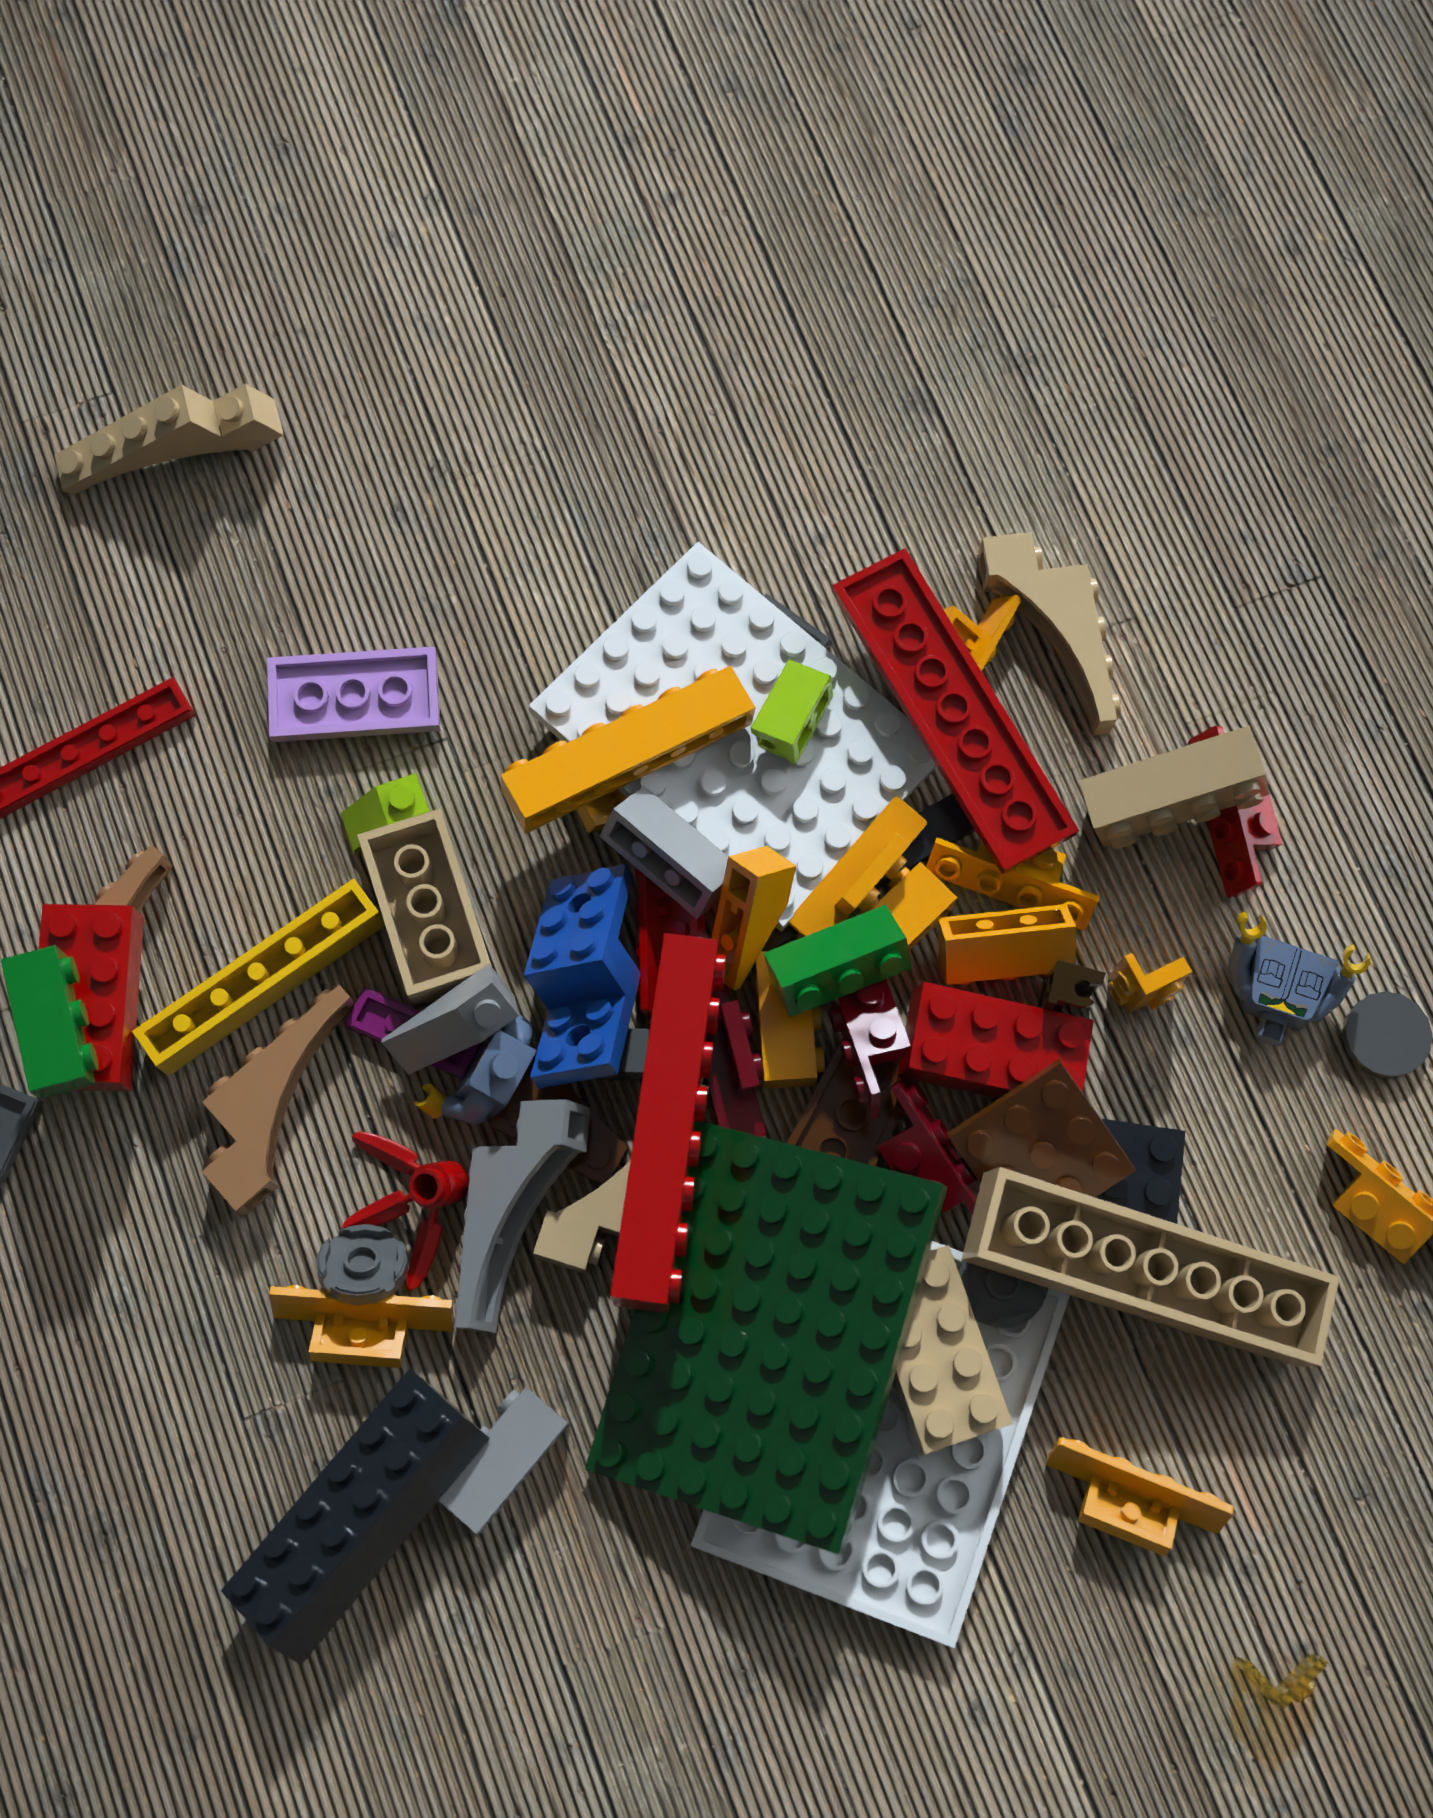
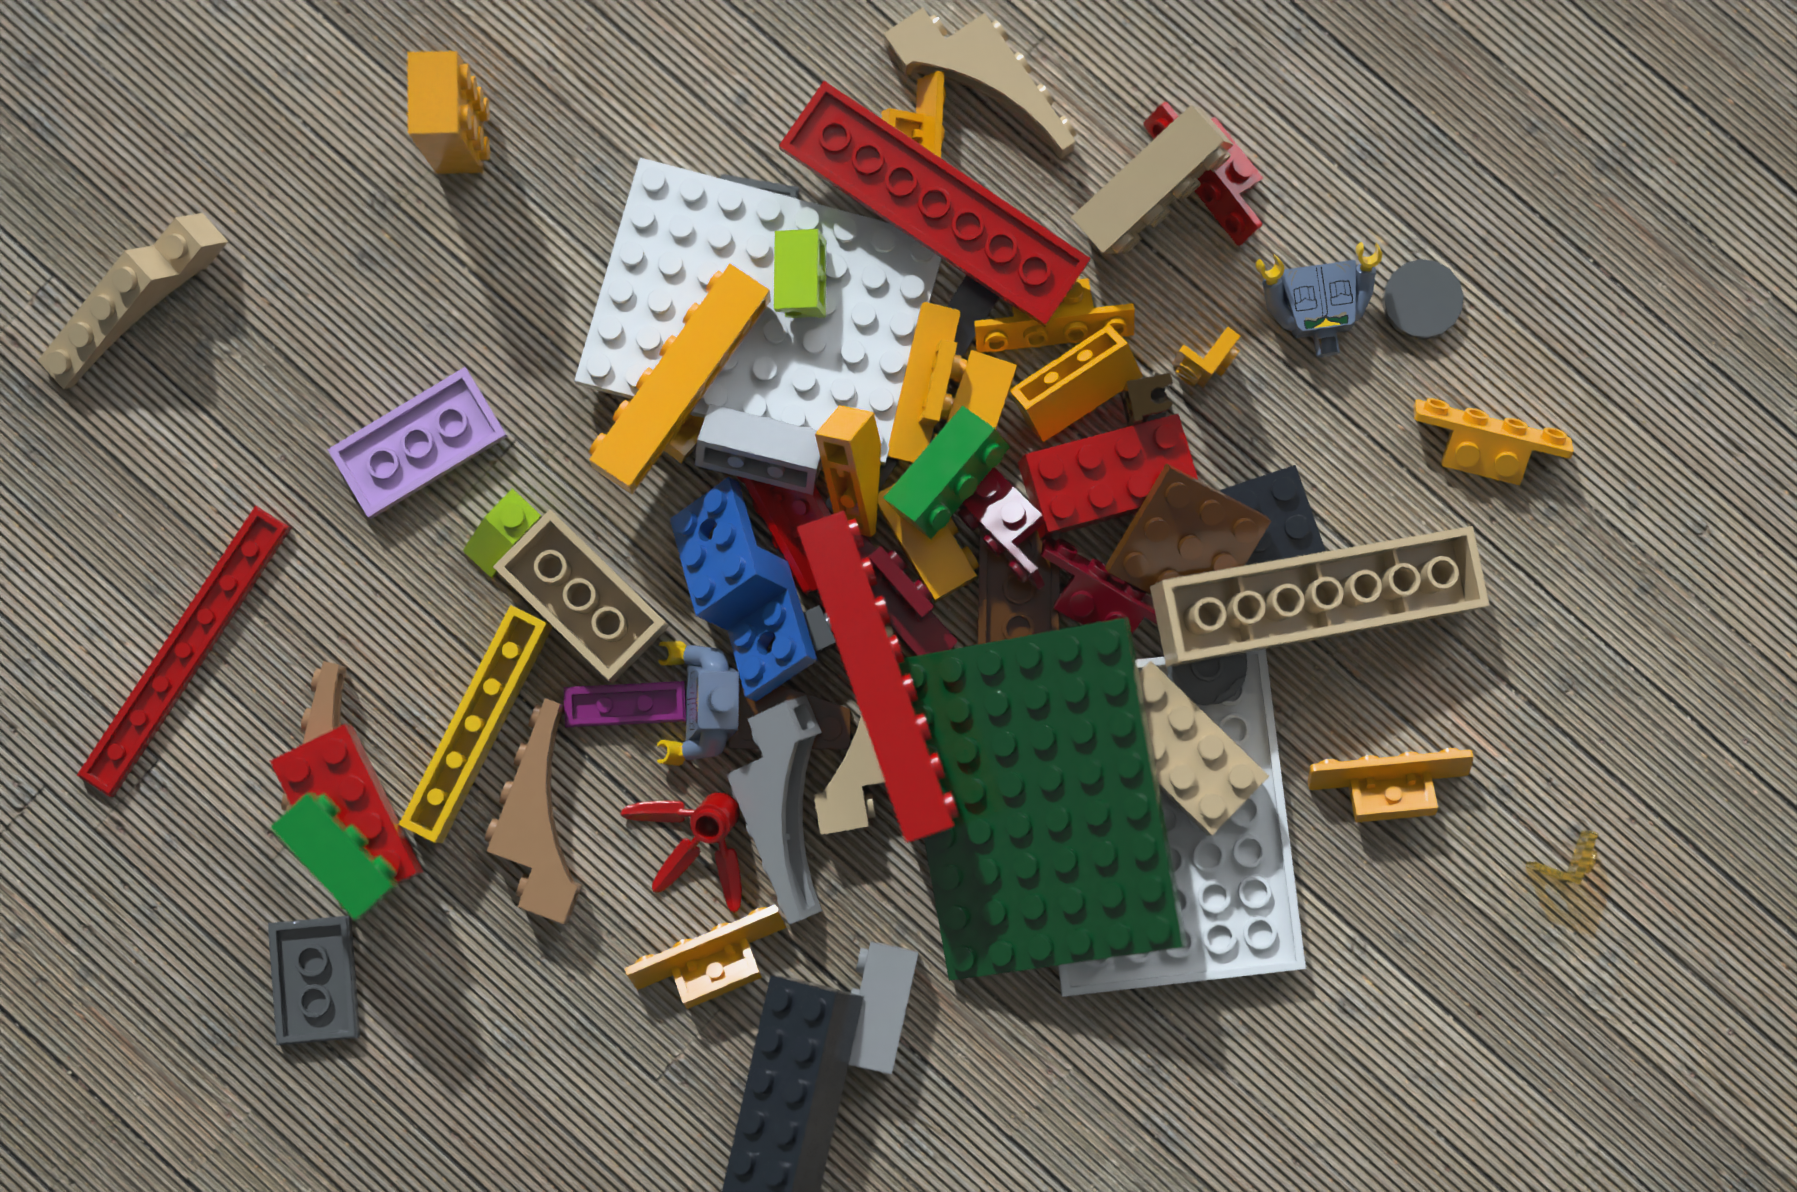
camera: 20 degrees left, 10 degrees up
(362, 1265) = (687, 913): dark grey tile -> none
(454, 1021) = (658, 680): light grey slope -> none
(540, 406) = (447, 112): none -> light orange brick

